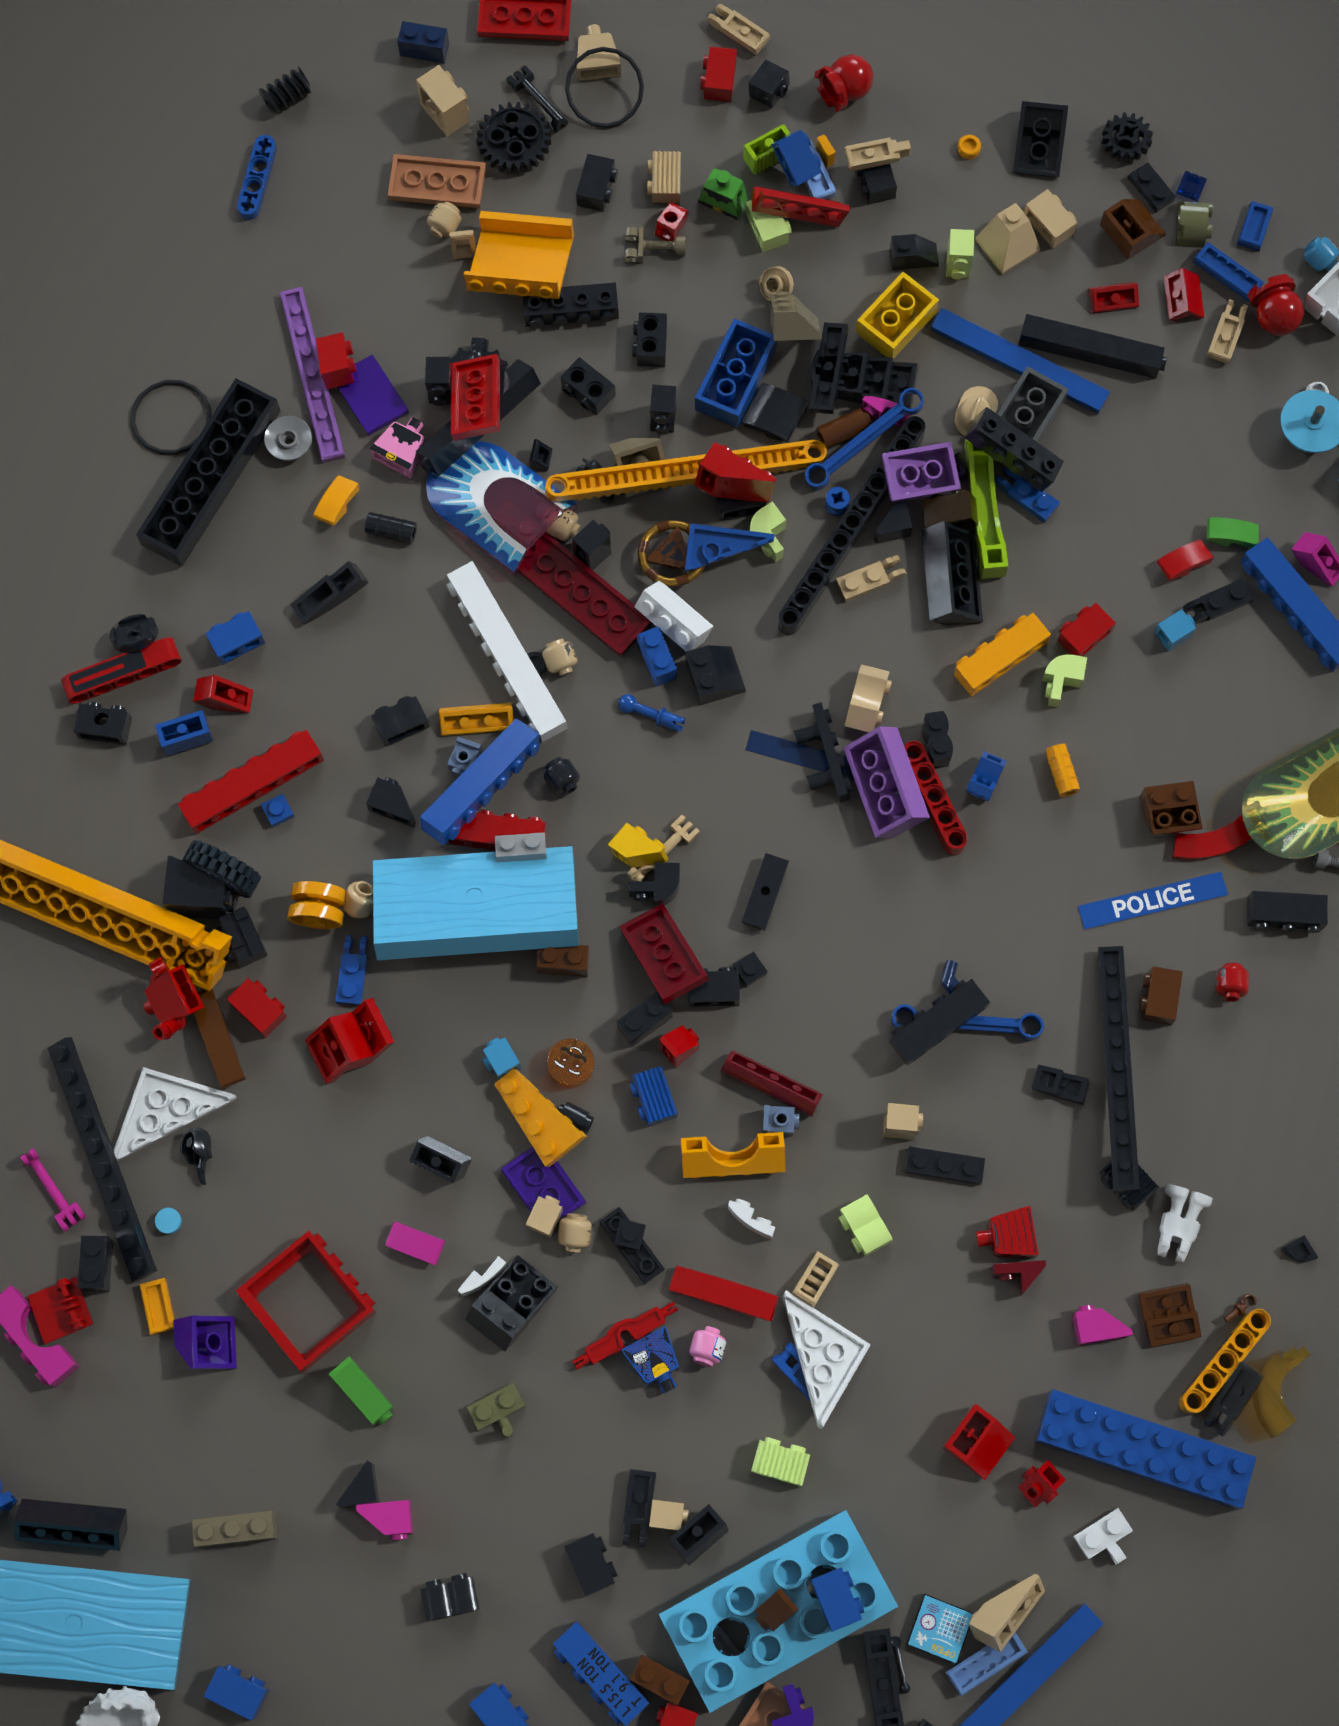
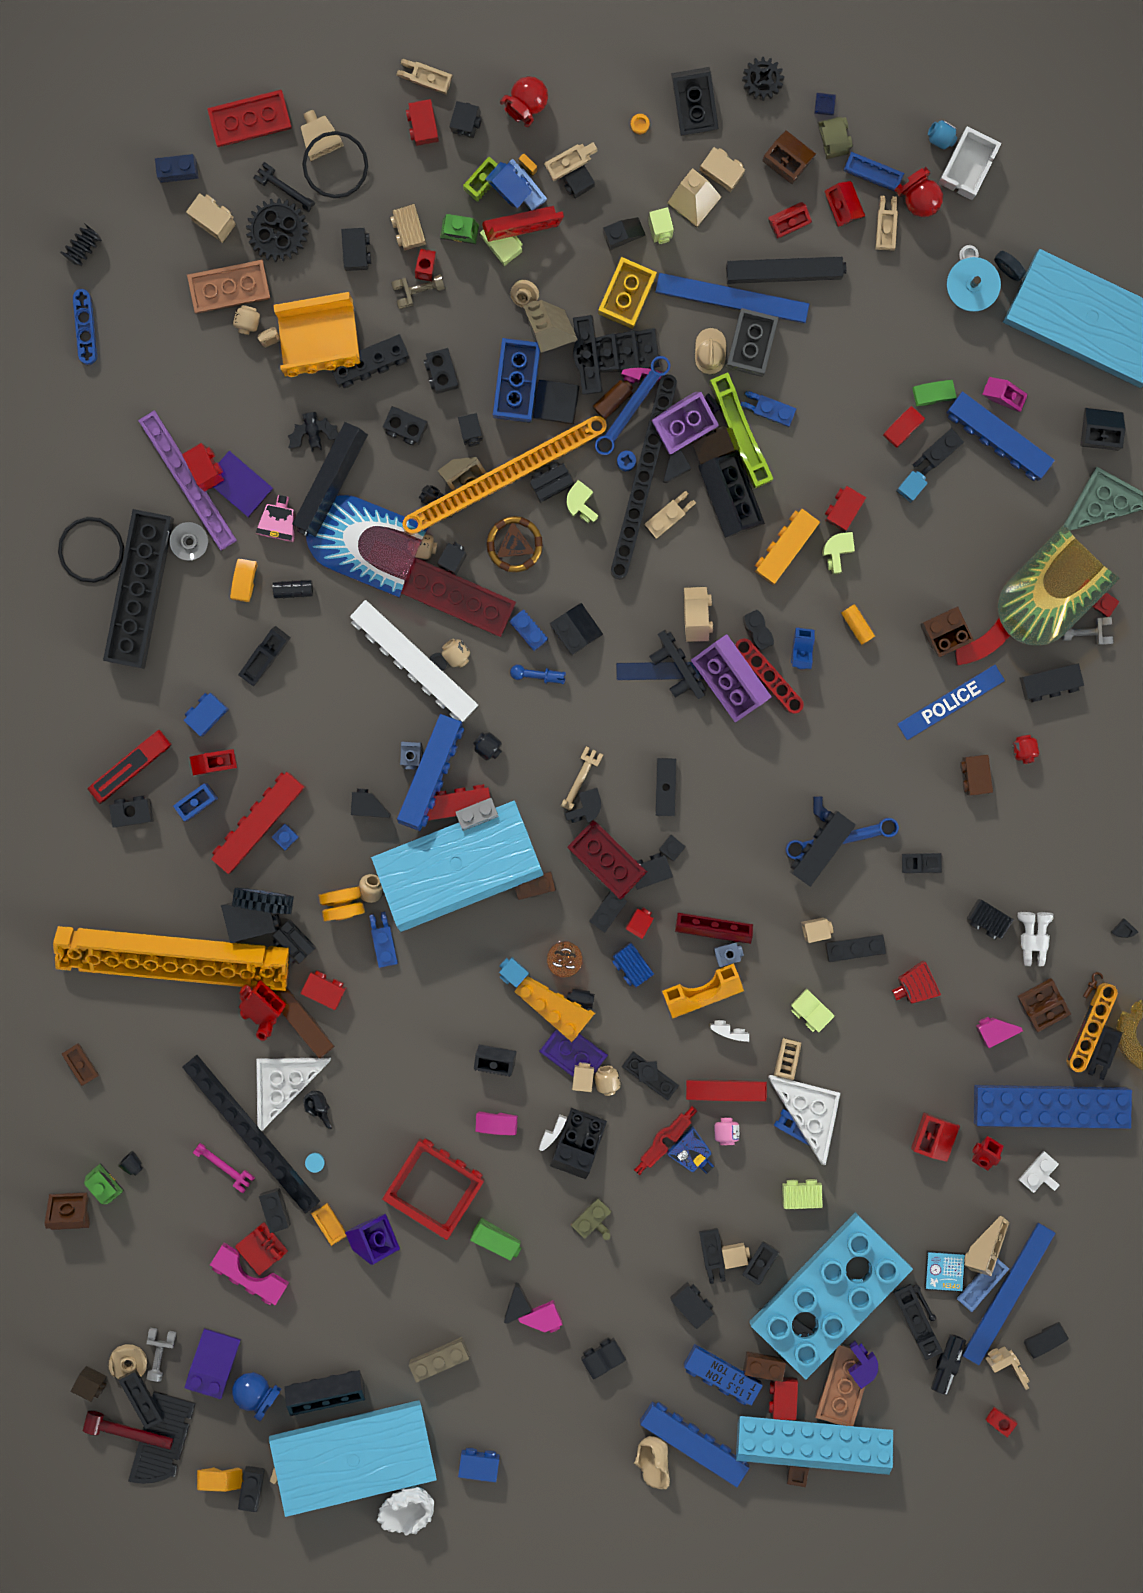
camera: 20 degrees left, 15 degrees up
(134, 633) = (128, 735): black tile -> none
(349, 1040) = (400, 995): red bracket -> none
(400, 720) = (353, 740): black brick -> none
(438, 380) = (290, 460): black brick -> none
(475, 397) = (324, 468): red plate -> none
(475, 719) = (408, 719): light orange slope -> none
(541, 454) = (387, 493): black slope -> none
(636, 849) = (561, 786): yellow slope -> none
(673, 616) = (531, 595): white brick -> none
(714, 544) = (543, 530): blue wing -> none
(733, 476) = (538, 475): red slope -> none
(775, 1610) = (831, 1301): reddish brown slope -> none
(837, 1599) = (871, 1282): blue brick -> none
(1014, 449) = (750, 382): black brick -> none
(1026, 1272) = (936, 1007): dark red slope -> none
(1118, 1070) = (961, 841): black plate -> none
(1152, 187) = (794, 115): black plate -> none
(1255, 225) = (884, 123): blue tile -> none

